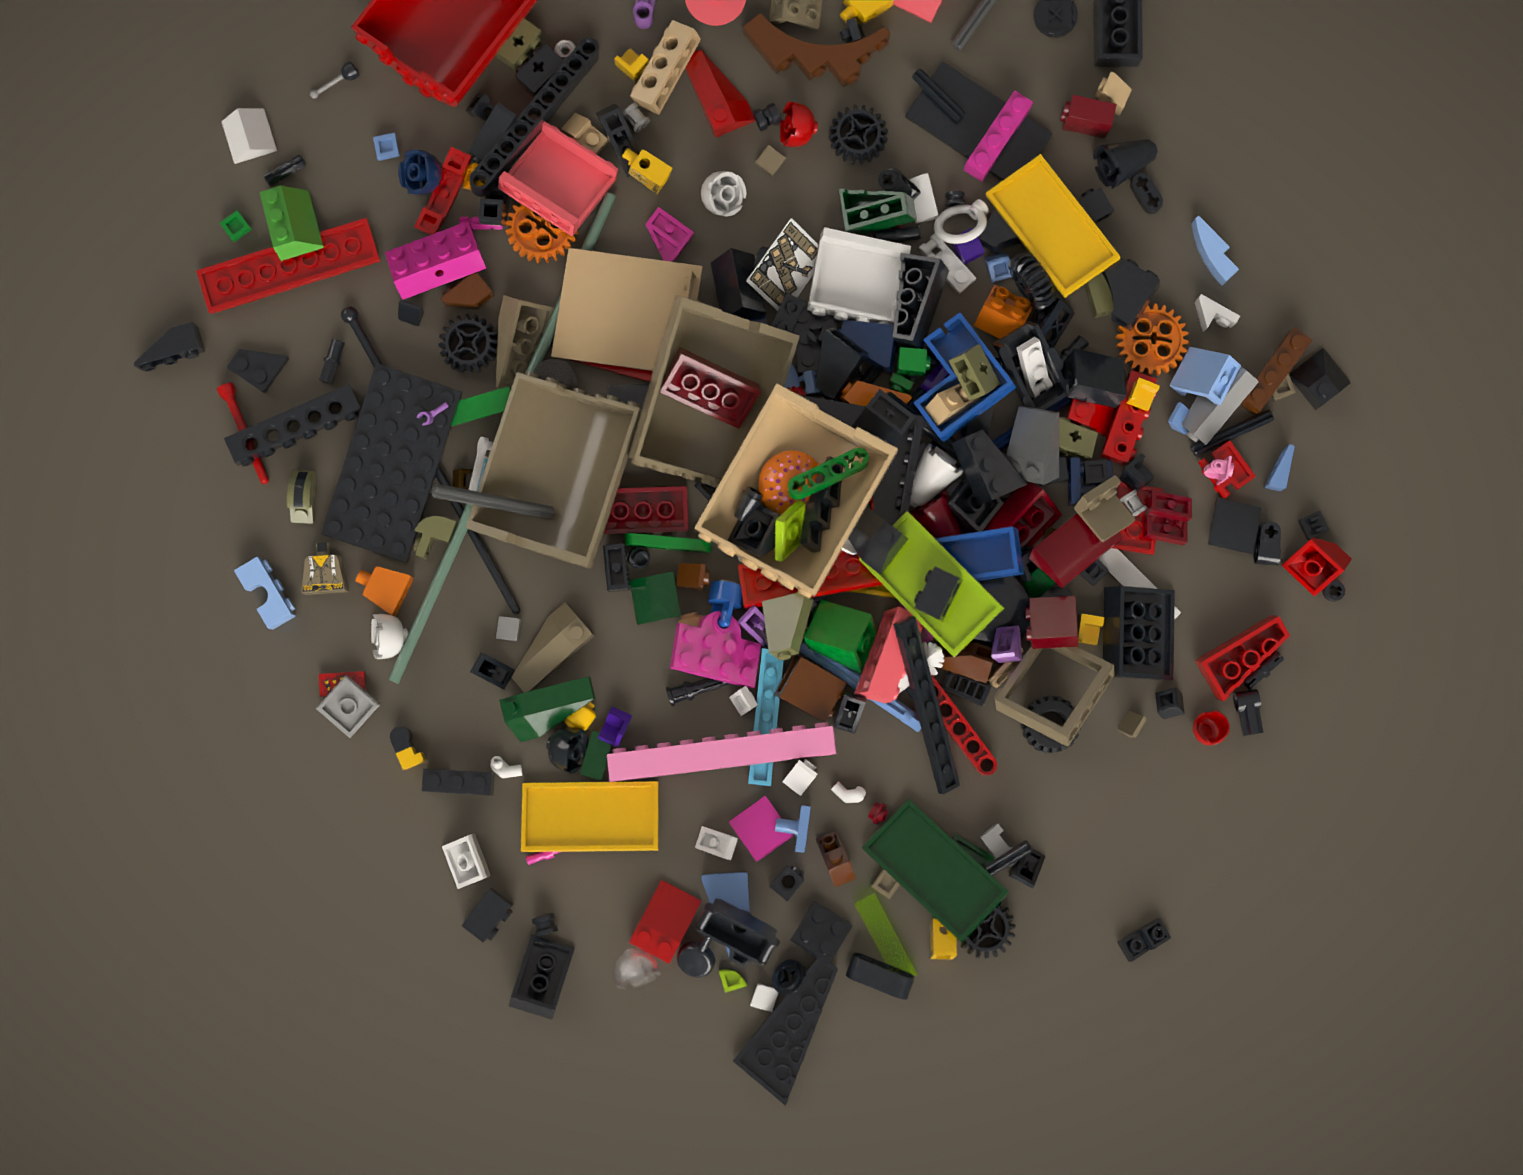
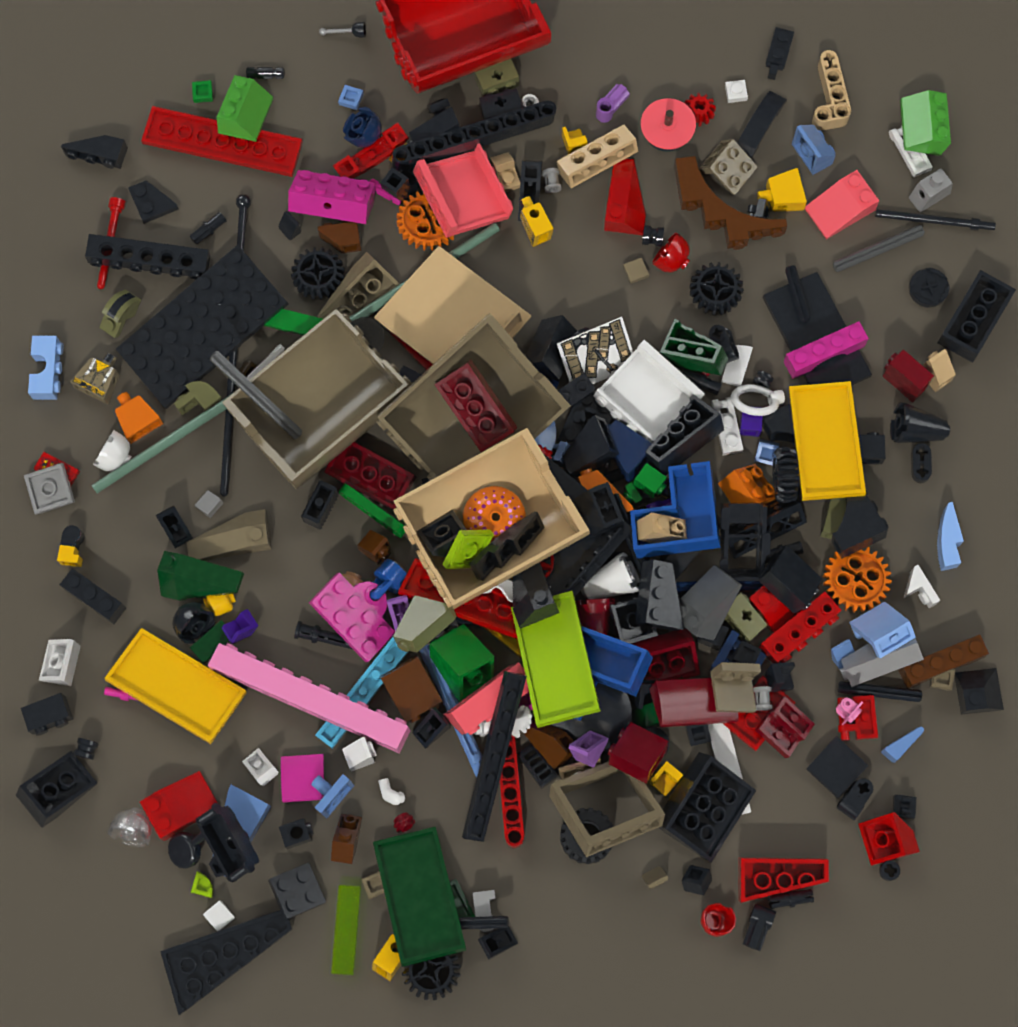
camera: 35 degrees right, 10 degrees down
(248, 134) = (256, 32): white slope -> none
(430, 415) = (251, 305): medium lavender hand -> none
(502, 769) = (134, 609): white arm -> none
(639, 557) = (343, 508): black plate -> none
(655, 598) = (336, 547): dark green slope -> none
(668, 234) = (521, 280): dark pink wing -> none
(723, 193) = (582, 271): white cylinder -> none
(743, 700) = (353, 667): white plate -> none
(748, 503) = (451, 509): black cone -> none
(780, 977) = (243, 907): black gear -> none
(826, 470) = (525, 526): green beam -> none
(880, 976) = (321, 955): black beam -> none
(937, 593) = (554, 667): black brick -> none
(974, 372) = (692, 513): olive brick -> none
(1034, 367) = (746, 542): white plate -> none
(1142, 394) = (821, 613): yellow panel -> none

